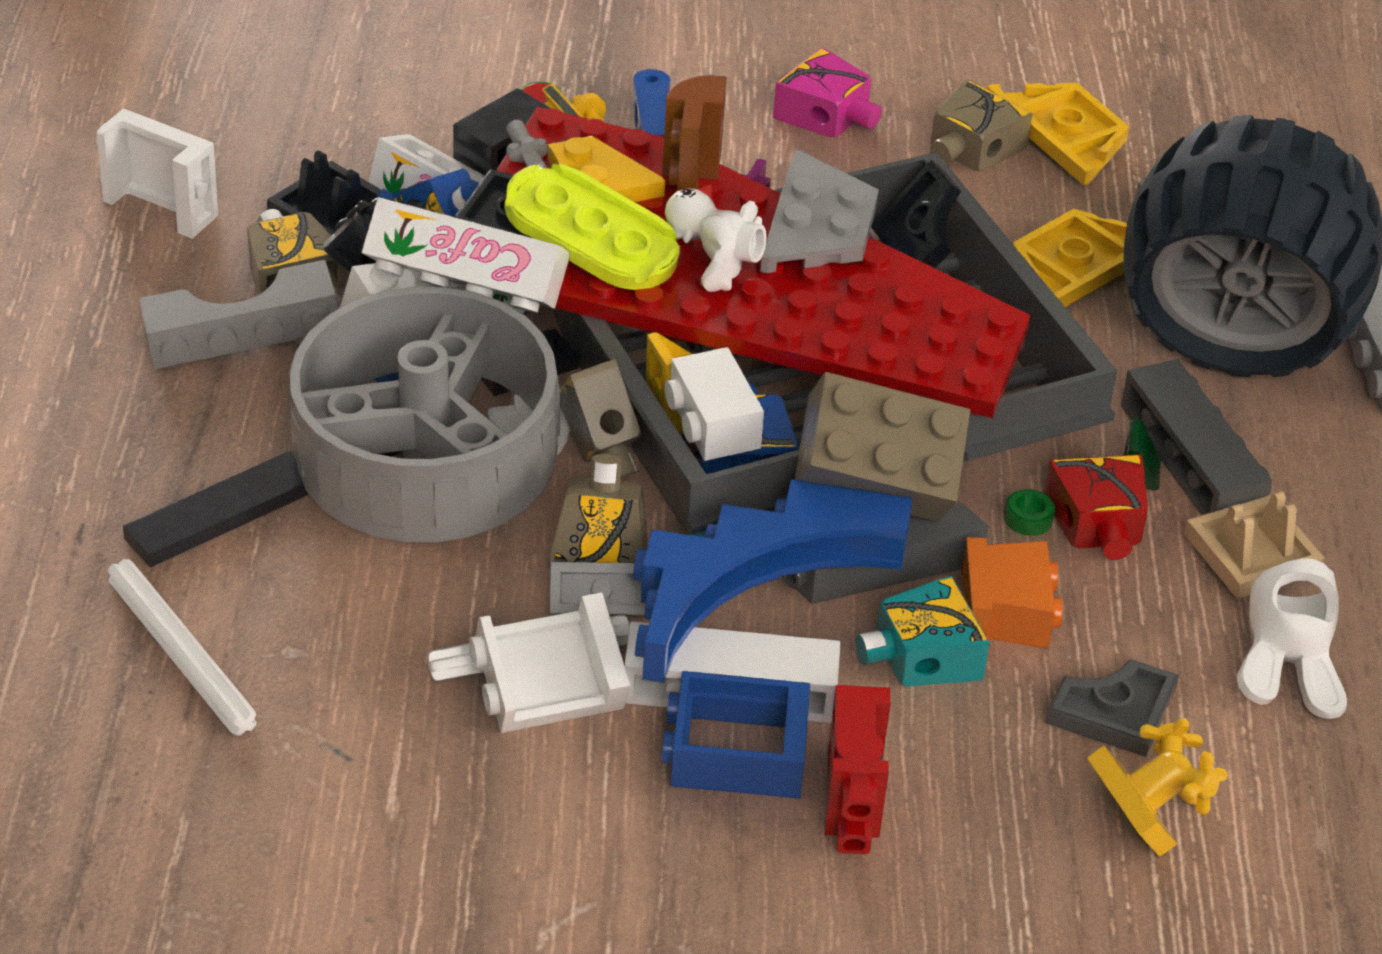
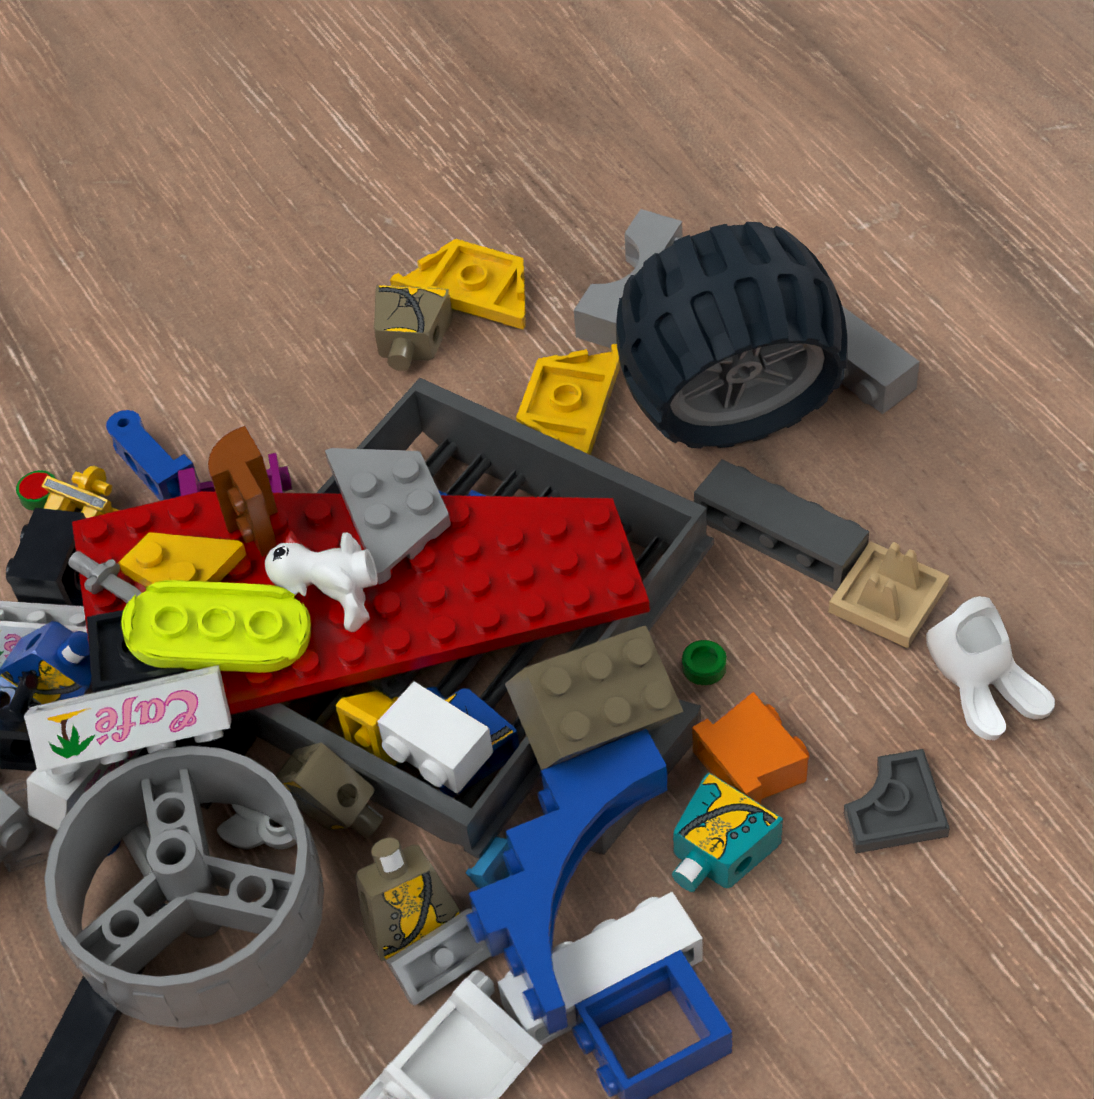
camera: 25 degrees left, 10 degrees up
(825, 96) = (272, 358): dark pink torso -> none
(856, 766) = (772, 1009): red hips -> none
(919, 215) = (446, 445): black tile -> none
(1100, 501) = (755, 624): red torso -> none
(1139, 443) = (749, 564): dark green slope -> none
(1160, 780) = (993, 867): yellow piece -> none

